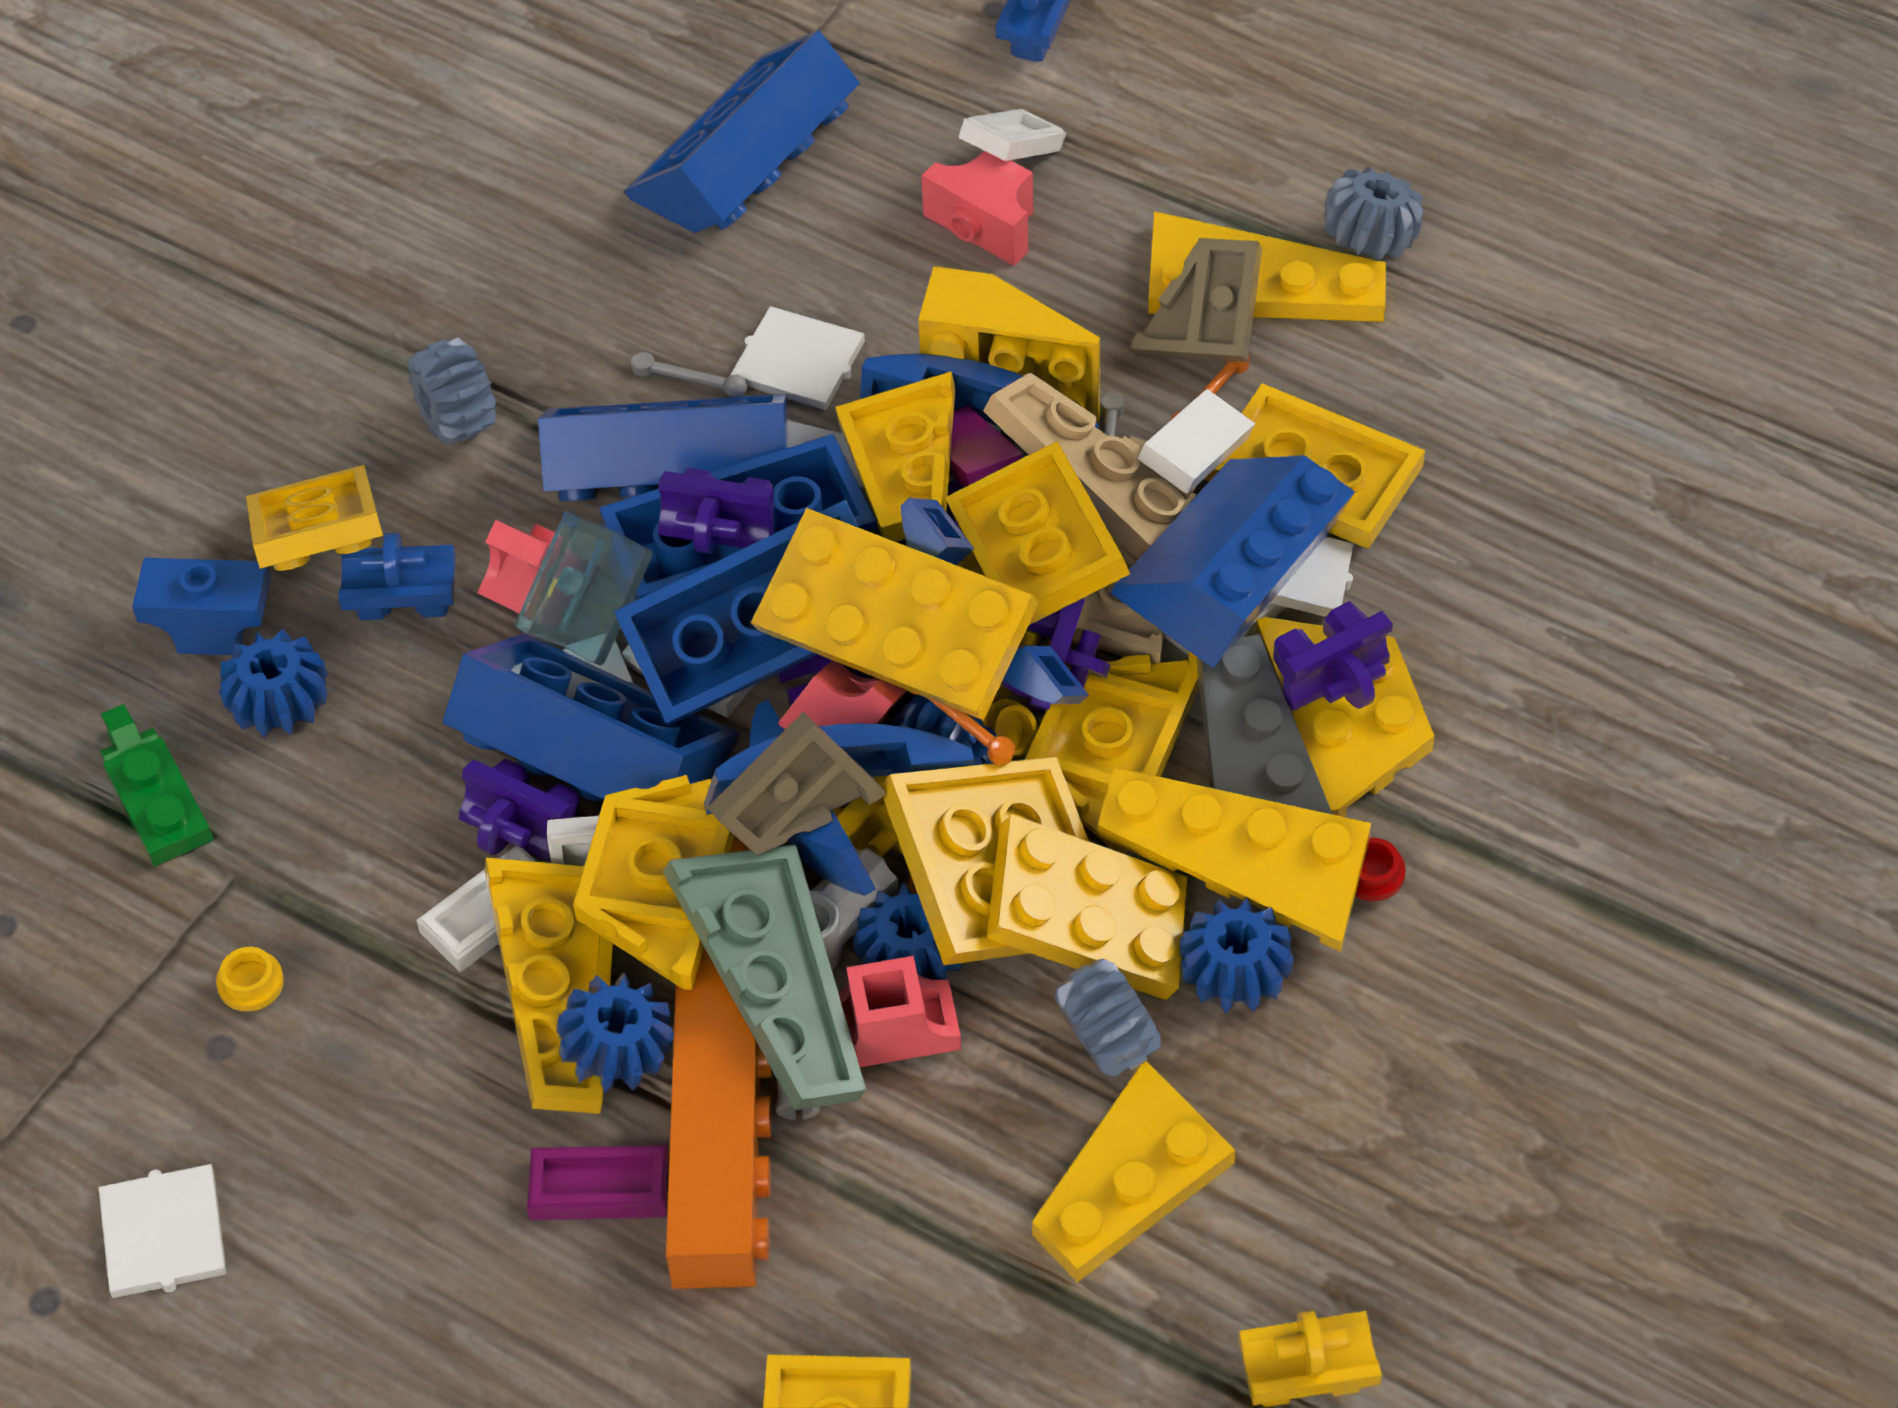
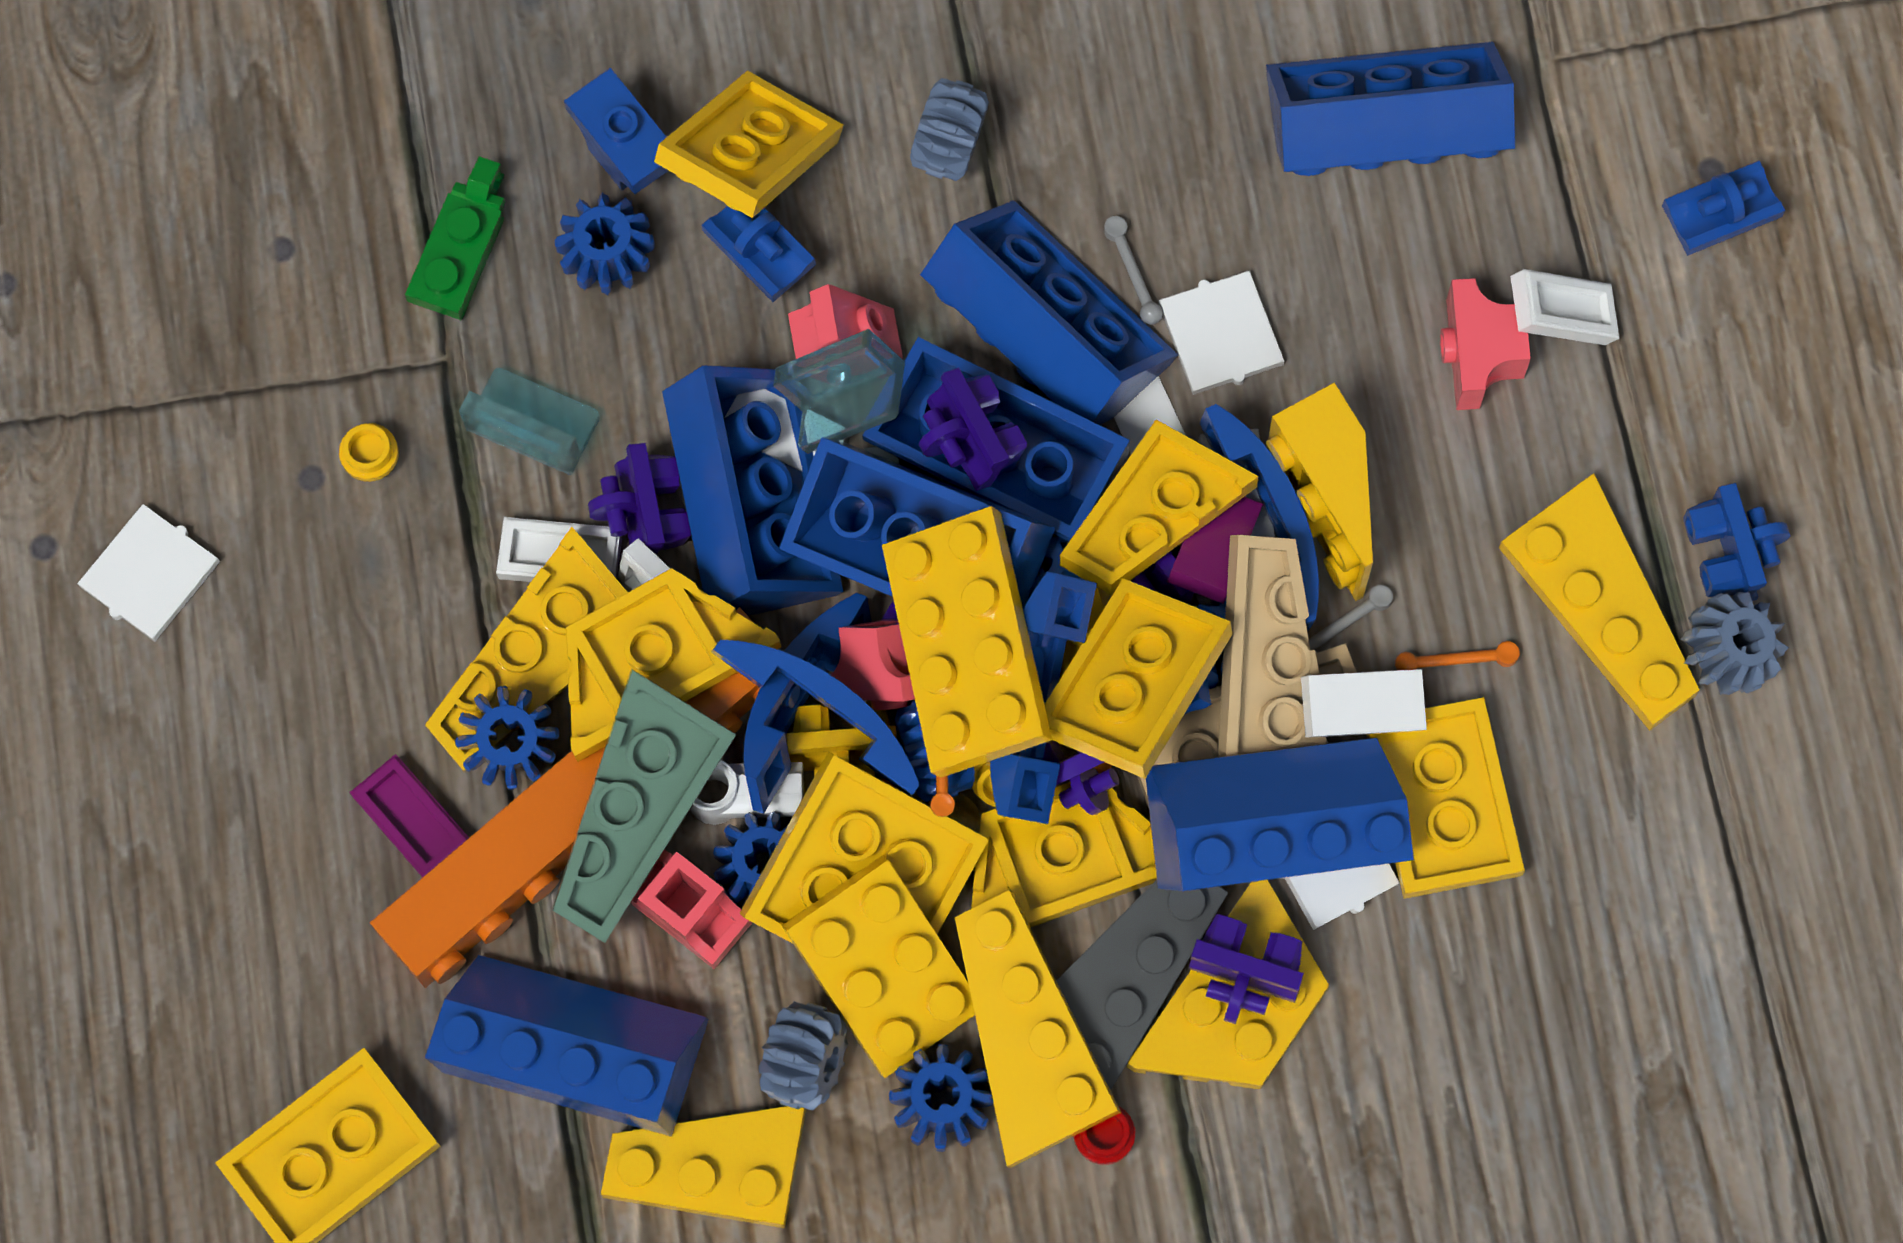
camera: 50 degrees right, 20 degrees up
(357, 848) = (530, 420): none -> clear light blue panel
(792, 788) = (753, 703): dark tan wing -> none
(927, 1195) = (568, 1044): none -> blue slope
(1208, 306) = (1521, 596): dark tan wing -> none
(1292, 164) = (1726, 520): none -> blue hips

